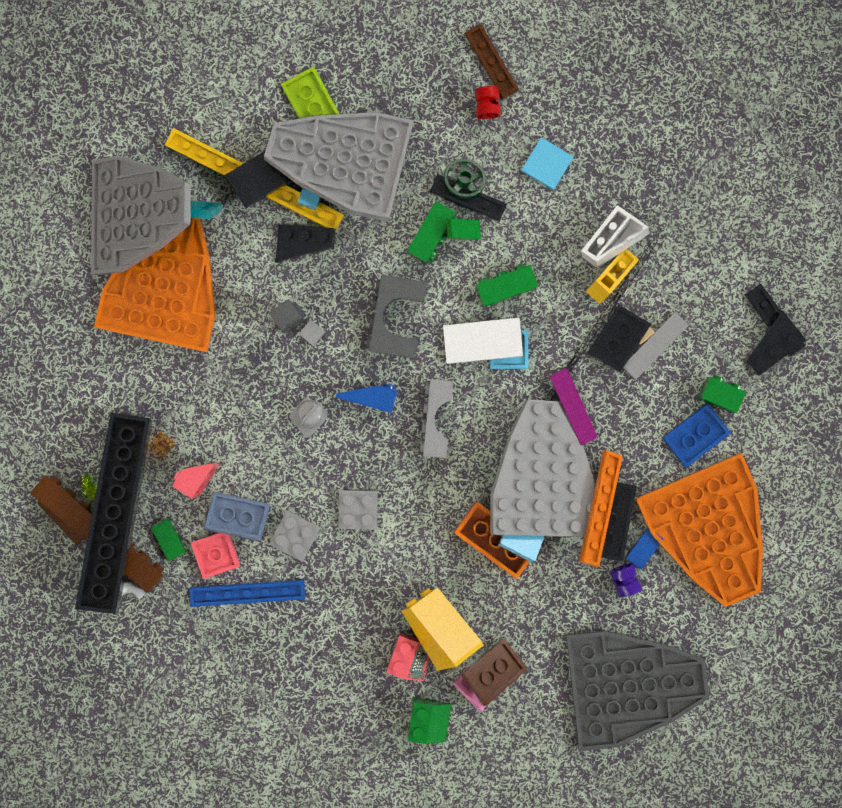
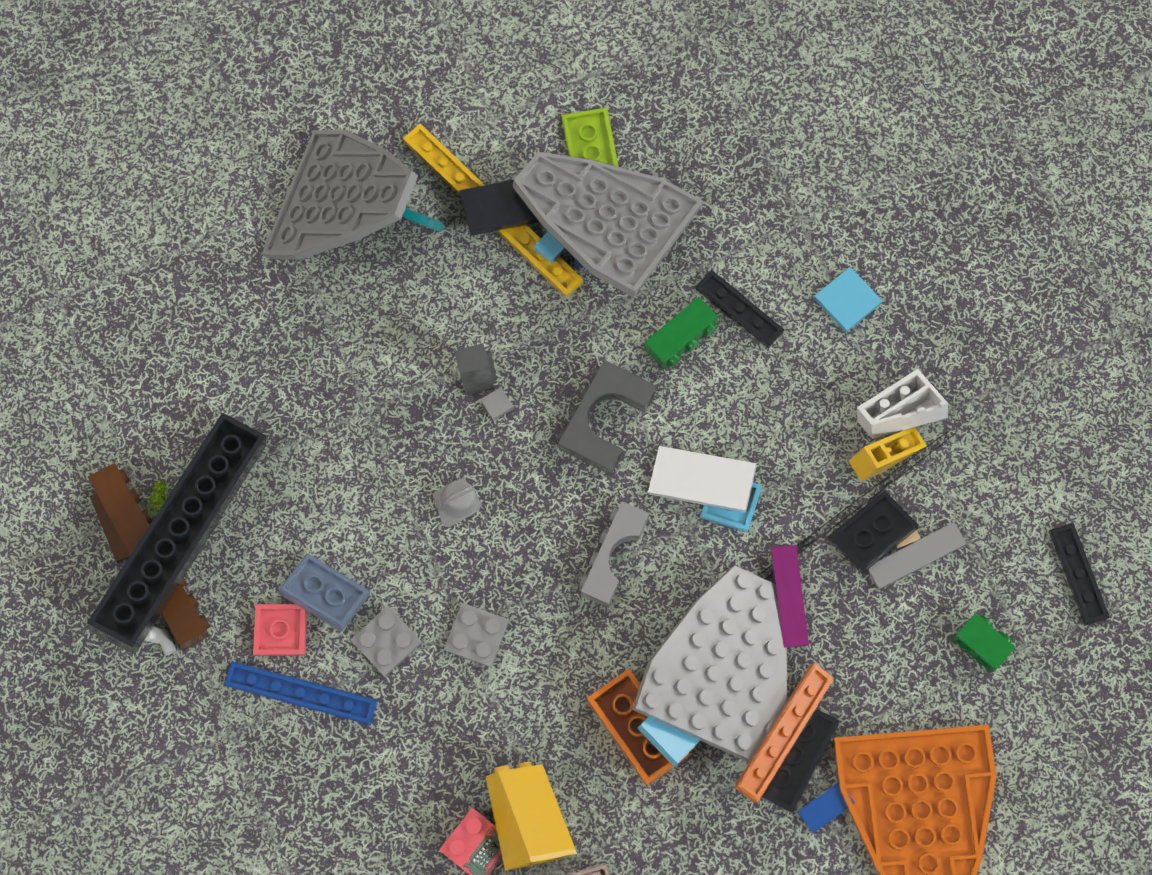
camera: 20 degrees right, 15 degrees down
(162, 444) = (267, 475): clear orange tile -> none
(164, 295) = (339, 301): orange piece -> none
(168, 539) = (229, 593): green tile -> none
(194, 479) = (293, 525): coral slope -> none
(302, 240) = (524, 293): black wing -> none
(376, 397) = (545, 502): blue slope -> none
(463, 229) = (721, 340): green tile -> none
(464, 178) = (742, 283): dark green wheel -> none
(487, 102) = (798, 207): red wheel -> none
(491, 61) = (817, 166): reddish brown tile -> none
(506, 285) = (752, 423): green brick -> none
(625, 579) = (788, 838): dark purple wheel -> none
(696, 435) = (936, 685): blue tile -> none
(776, 344) = (1071, 602): black wing -> none

